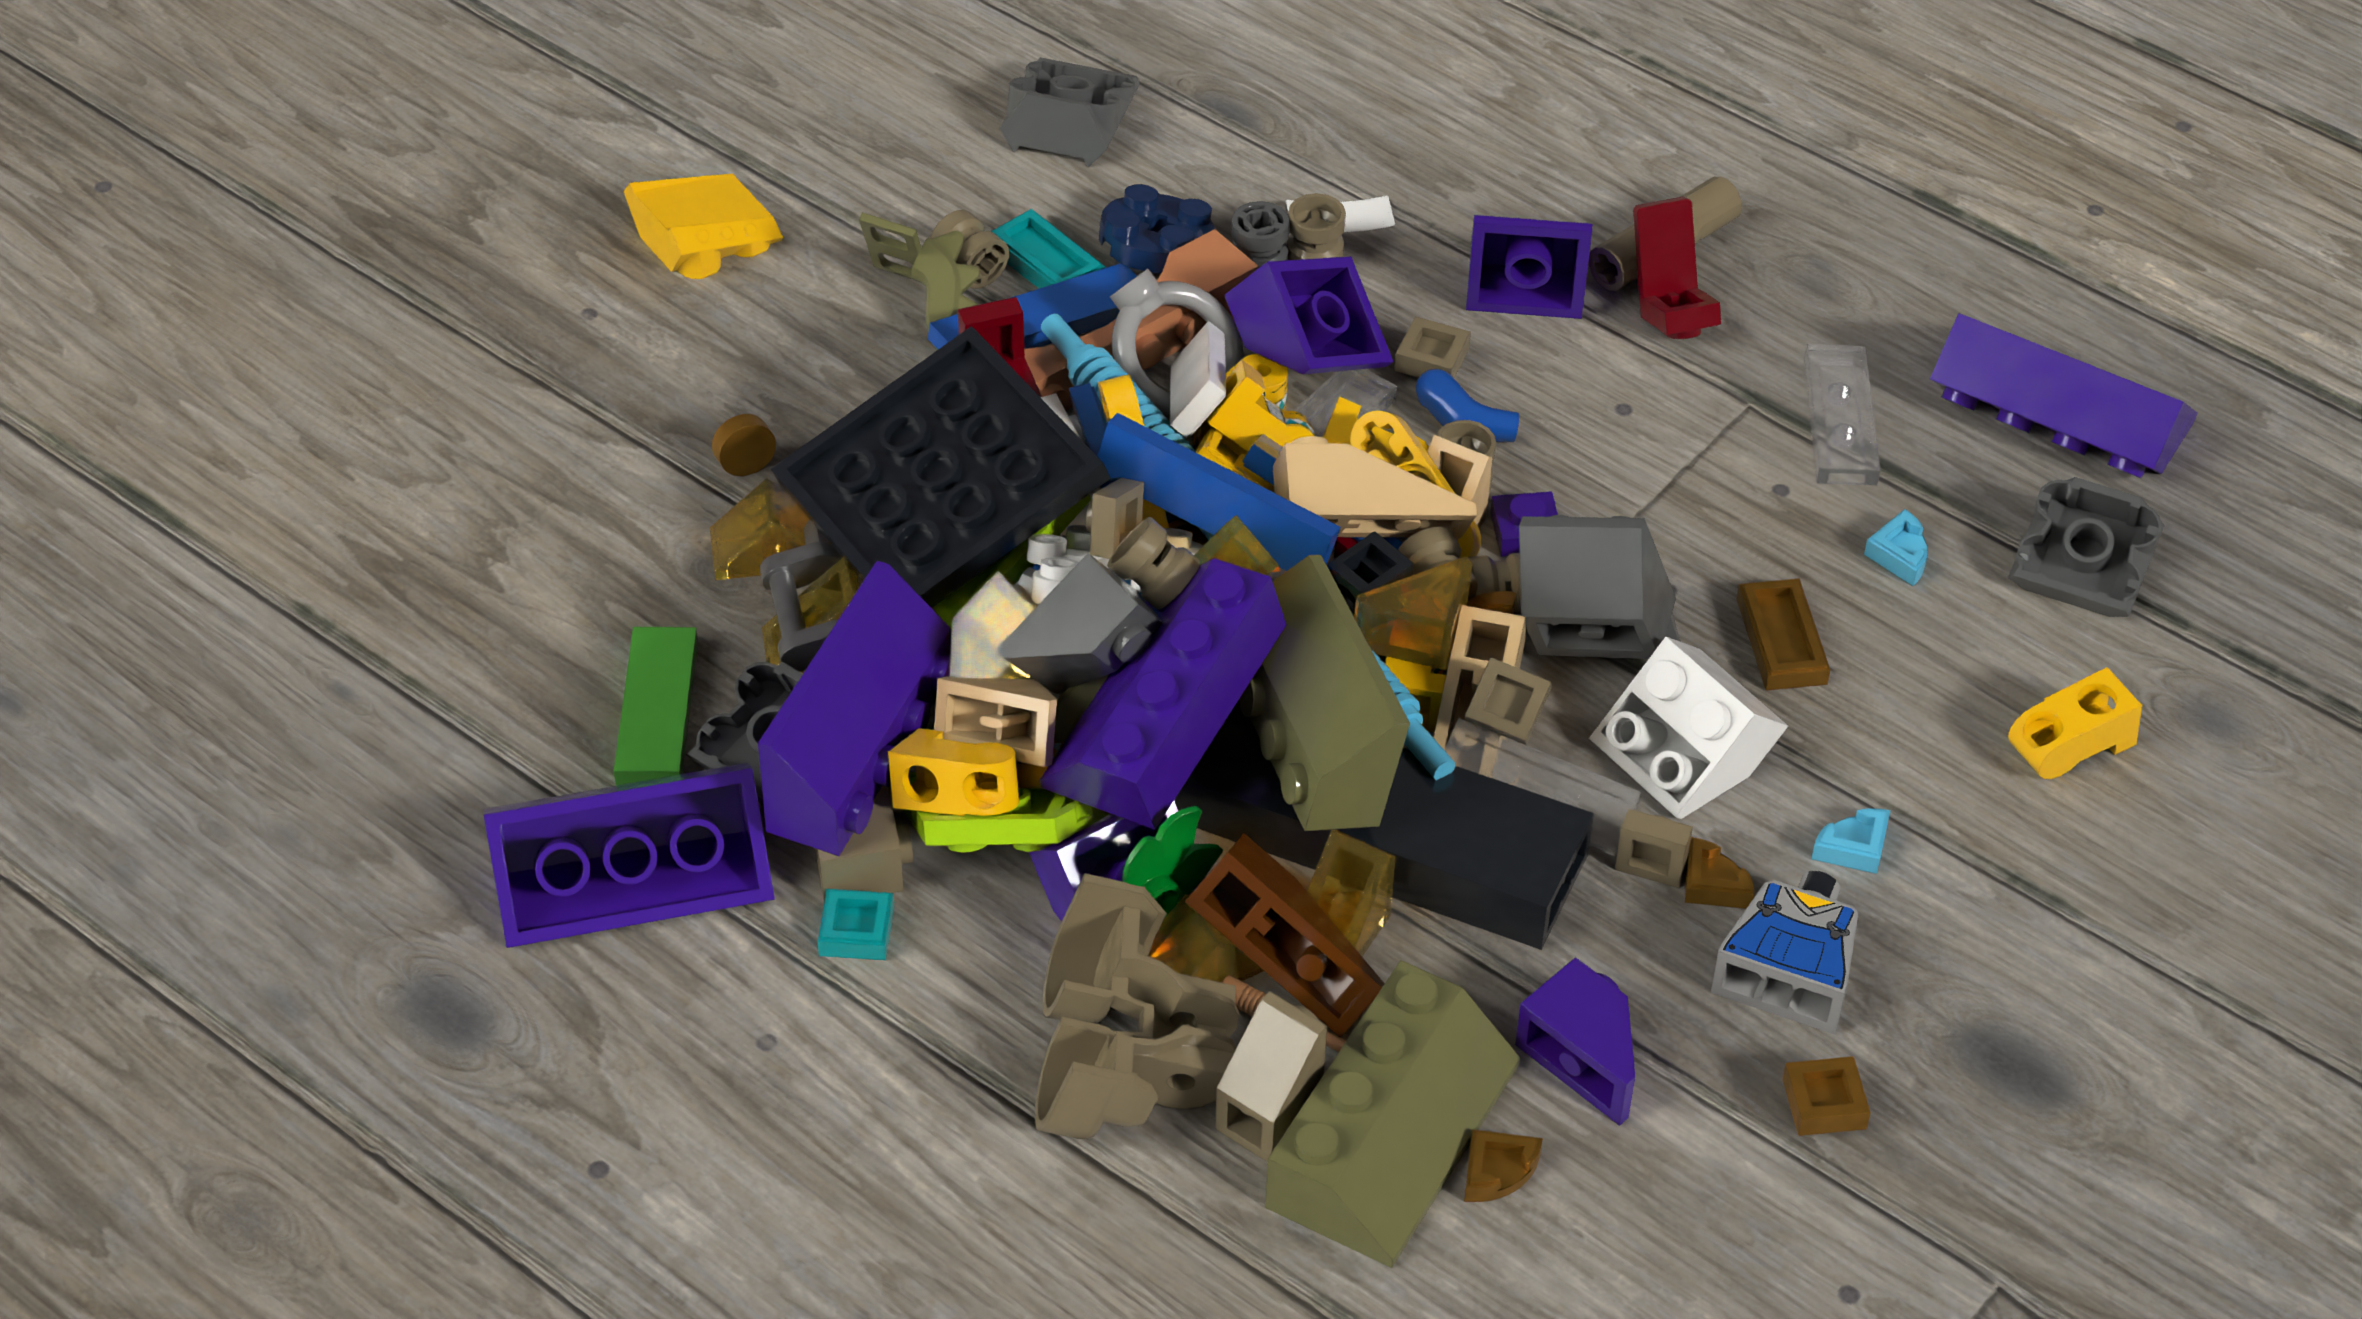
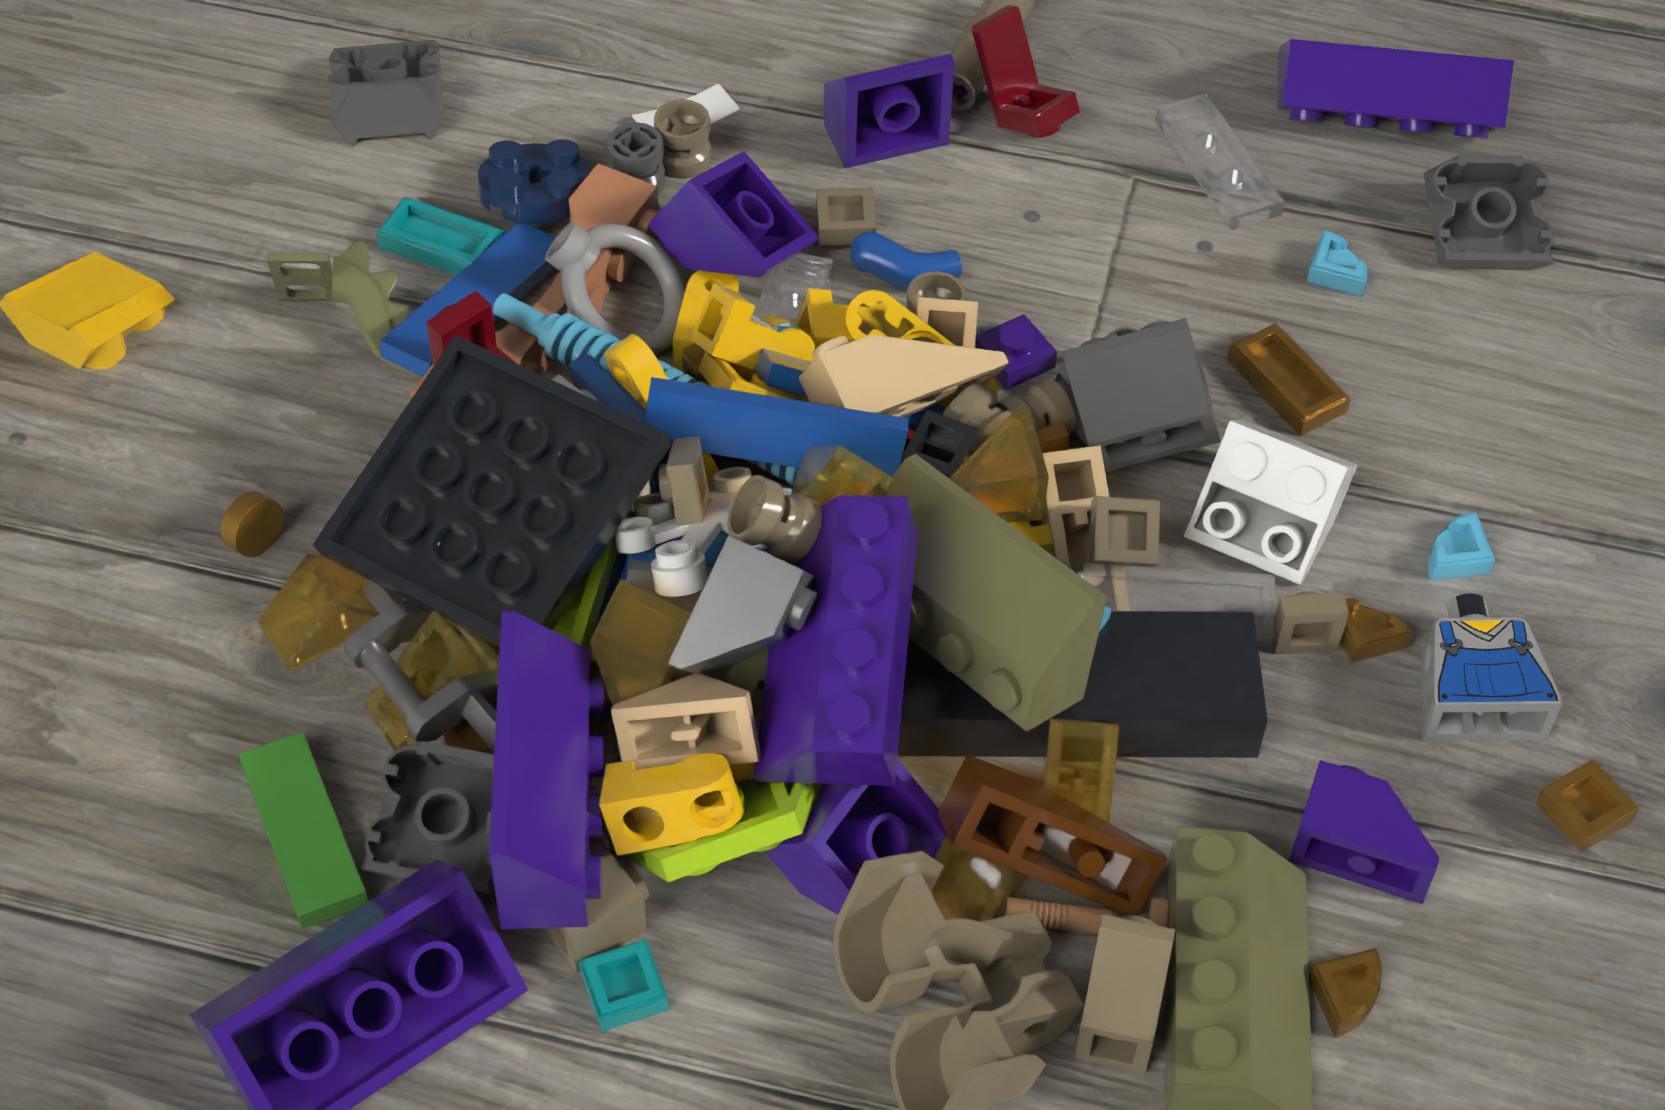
camera: 25 degrees left, 5 degrees up
(979, 248) = (385, 249): dark tan wheel -> none
(1171, 861) = (919, 812): green plate -> none
(1198, 380) = (669, 315): white tile -> none
(2077, 724) = (1580, 377): yellow leg -> none

